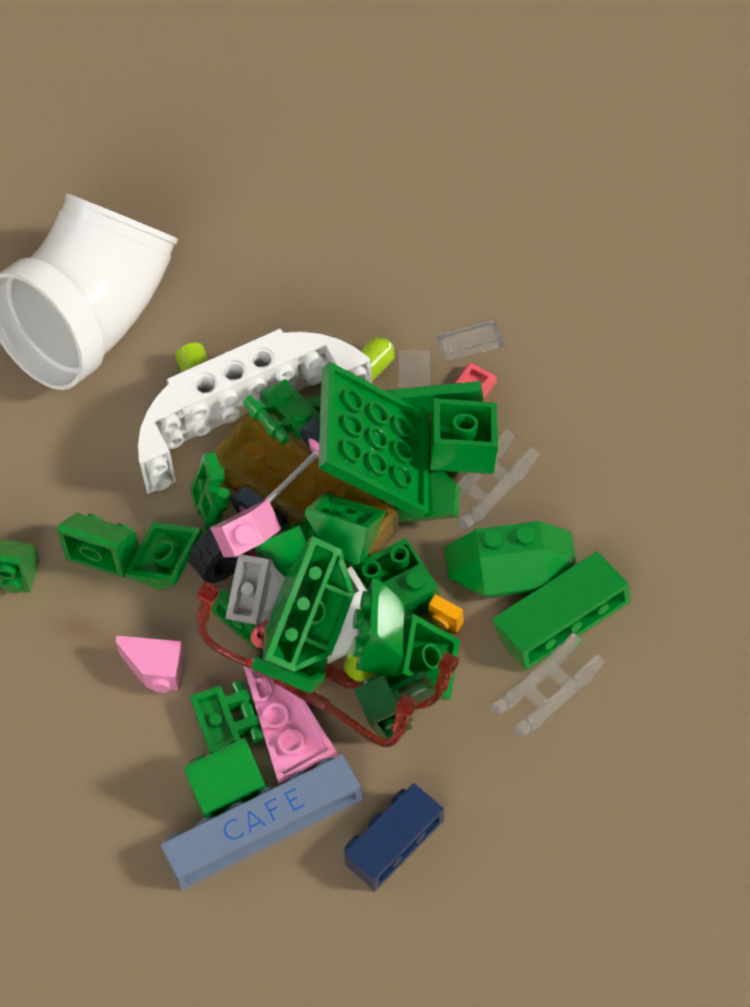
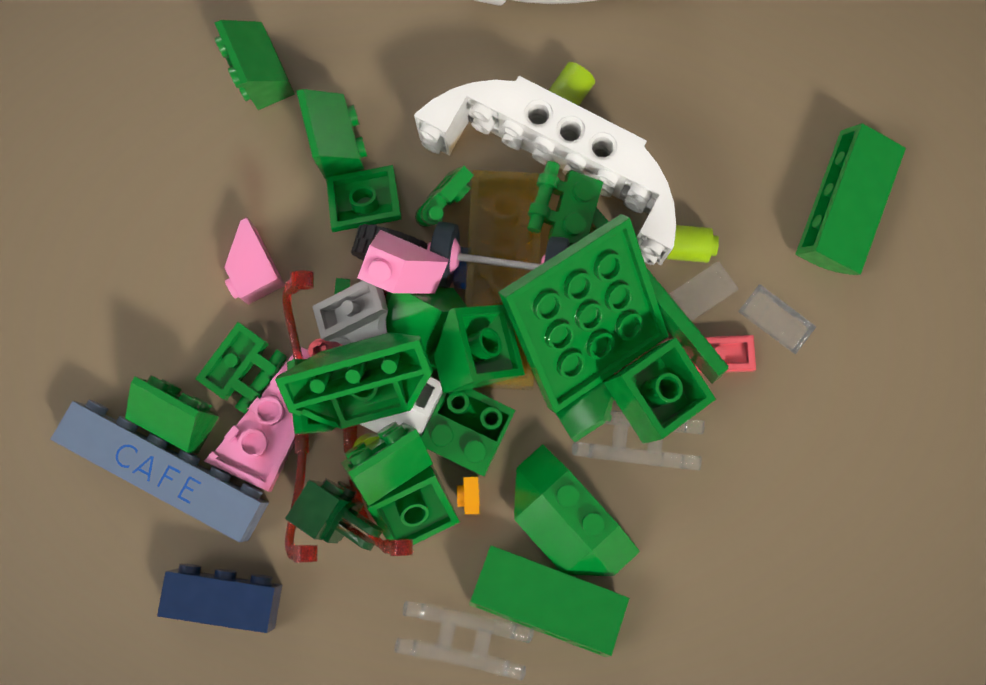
camera: 55 degrees right, 20 degrees up
(421, 242) = (851, 200): none -> green brick

